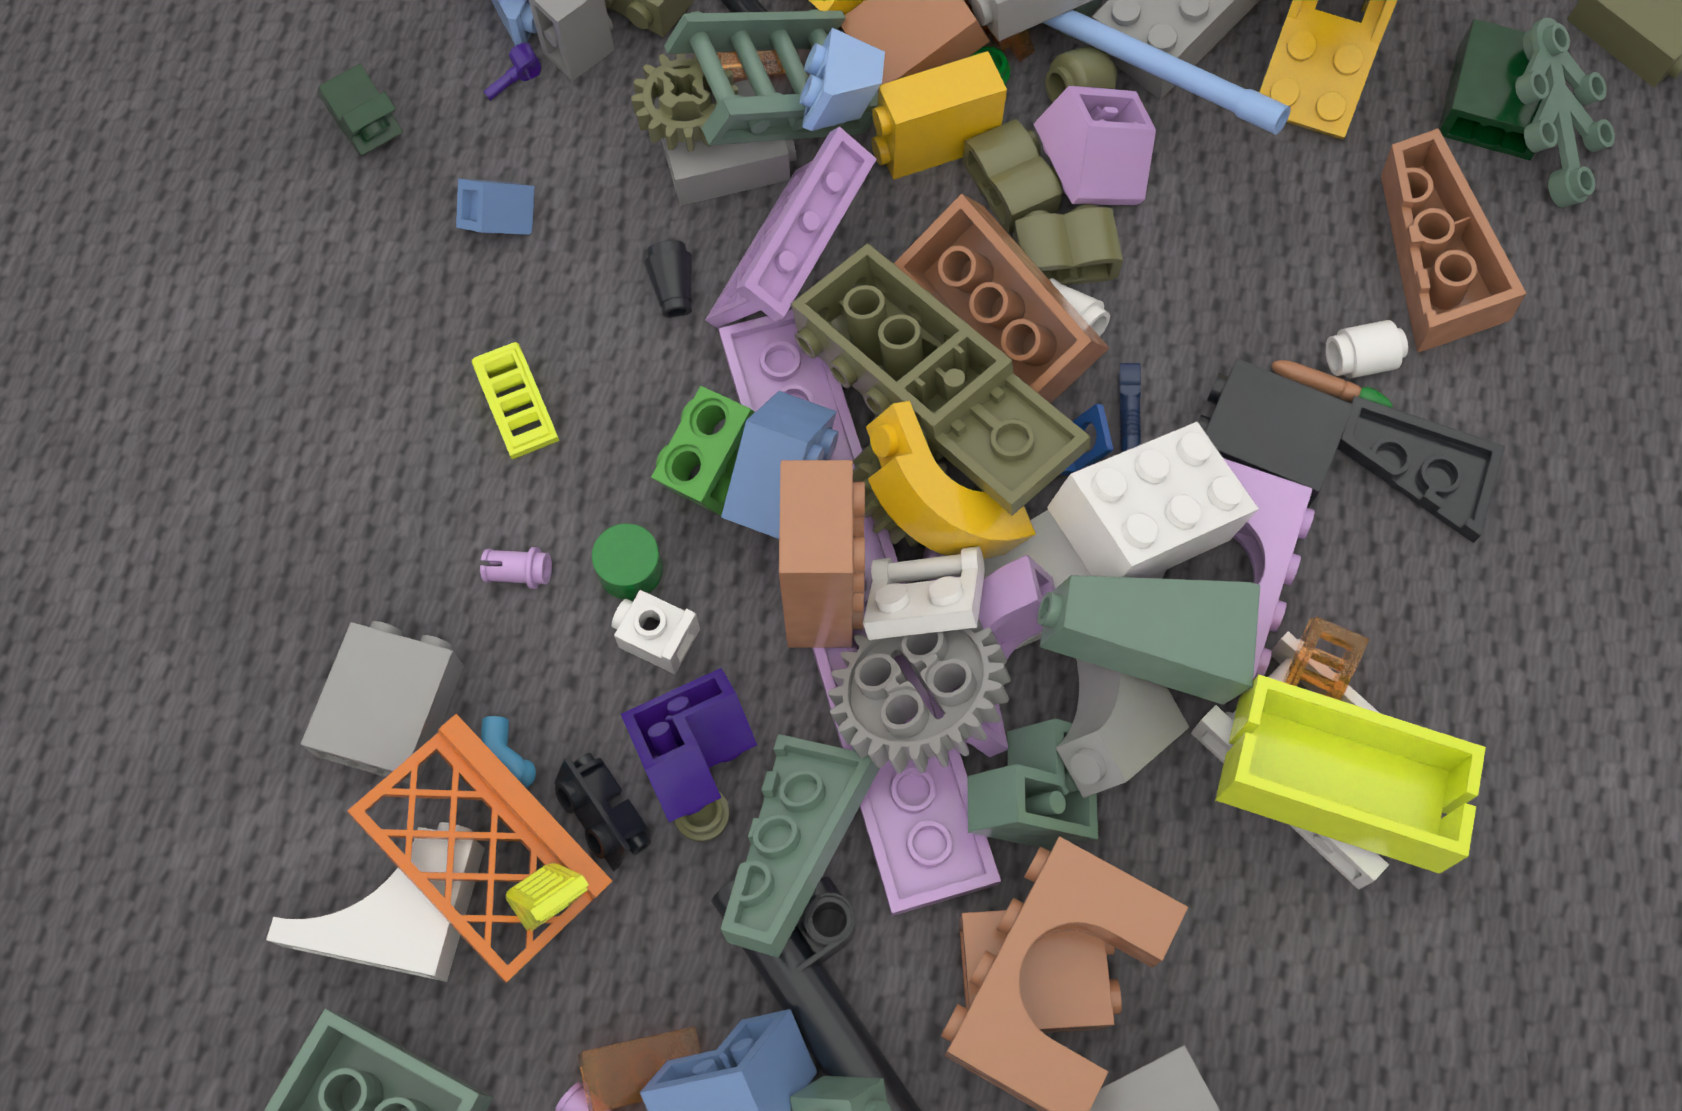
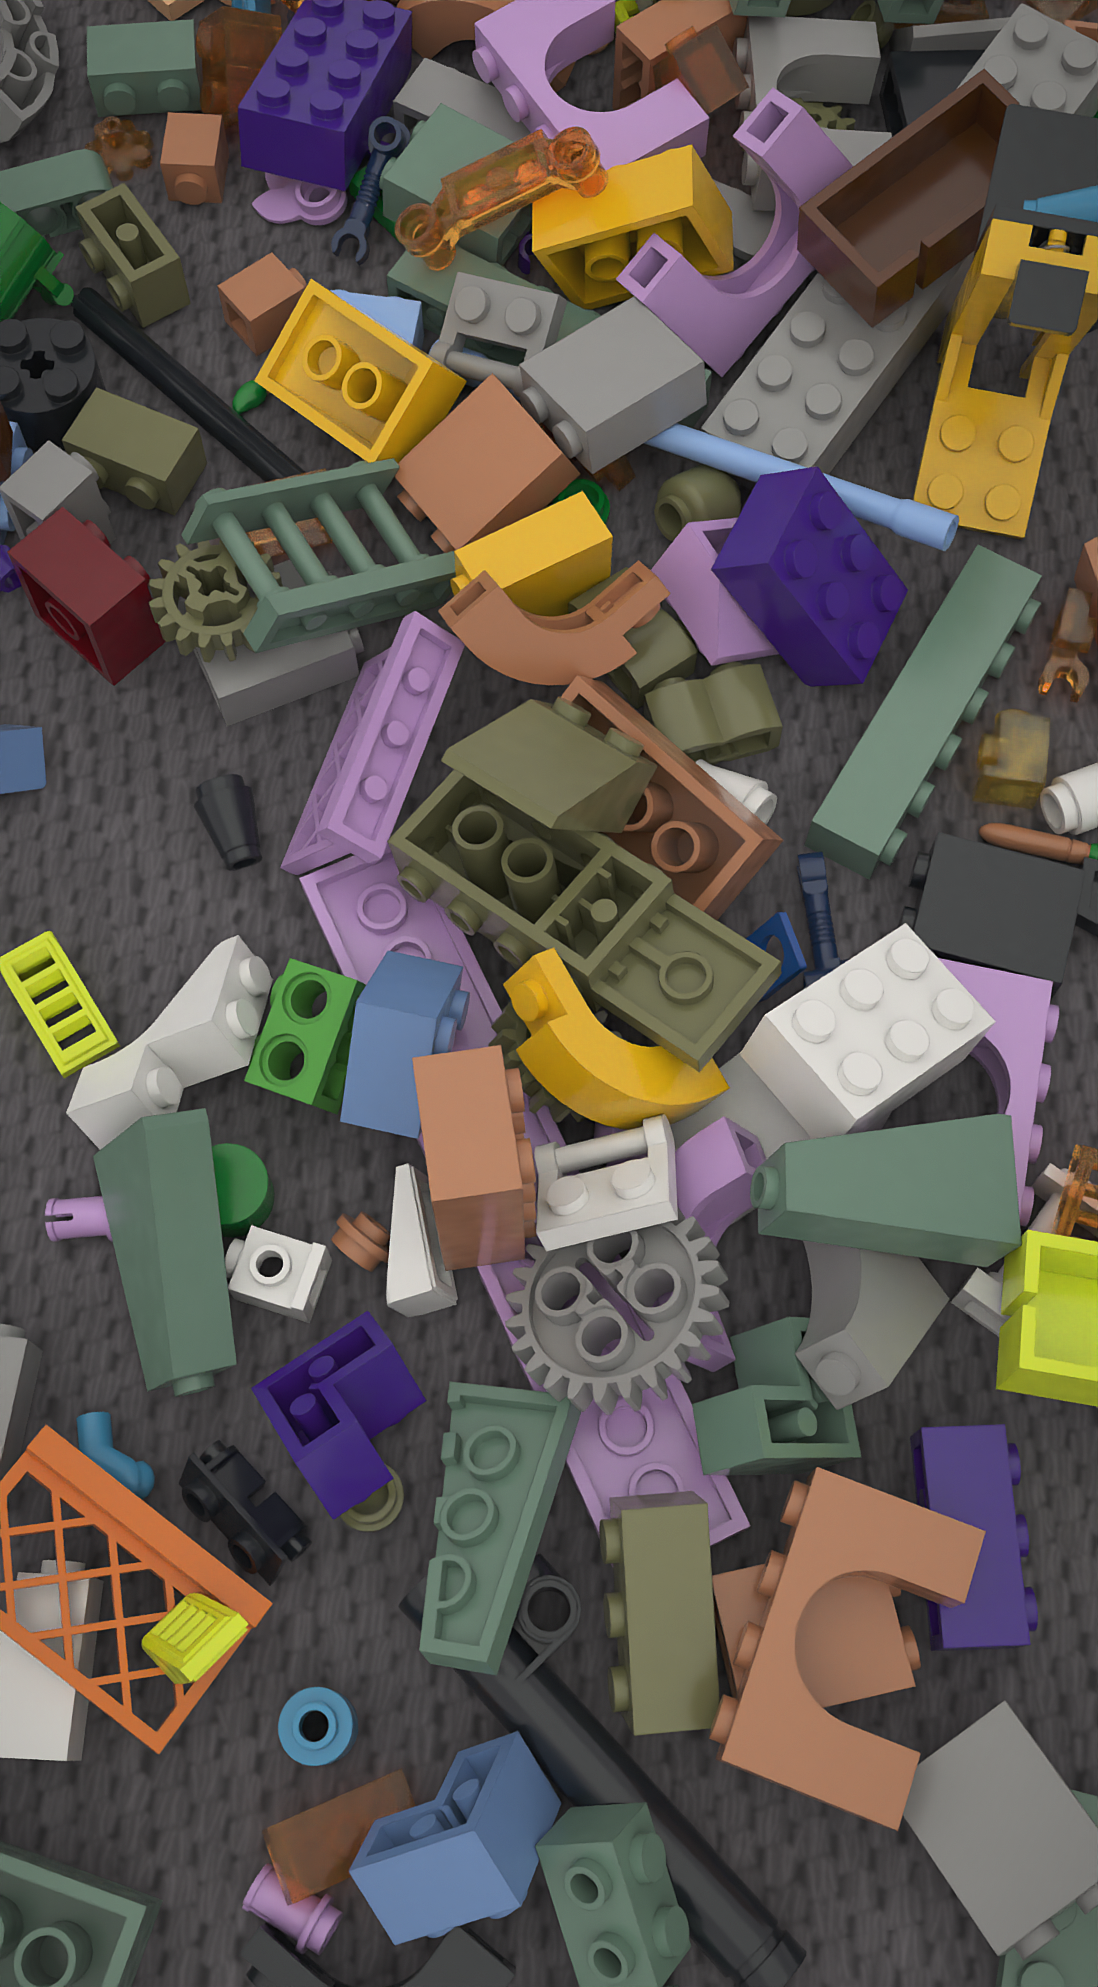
camera: 10 degrees left, 0 degrees up
(573, 595) = (170, 1248): none -> sand green slope
(585, 86) = (88, 594): none -> dark red brick
(617, 440) = (194, 1039): none -> white arch
(647, 994) = (341, 1730): none -> dark azure brick
(726, 615) = (362, 1240): none -> nougat plate
(764, 643) = (415, 1260): none -> white slope
(840, 81) = (407, 550): light blue slope -> none
(918, 935) = (661, 1612): none -> olive brick
(934, 260) = (557, 766): none -> olive slope
(949, 172) = (554, 647): none -> nougat arch
(1163, 143) = (810, 577): none -> dark purple brick
(1185, 867) = (971, 1479): none -> dark purple brick
(1240, 263) = (923, 711): none -> sand green brick
(1307, 312) = (1013, 760): none -> clear yellow brick
(1371, 219) = (1071, 634): none -> clear orange plate

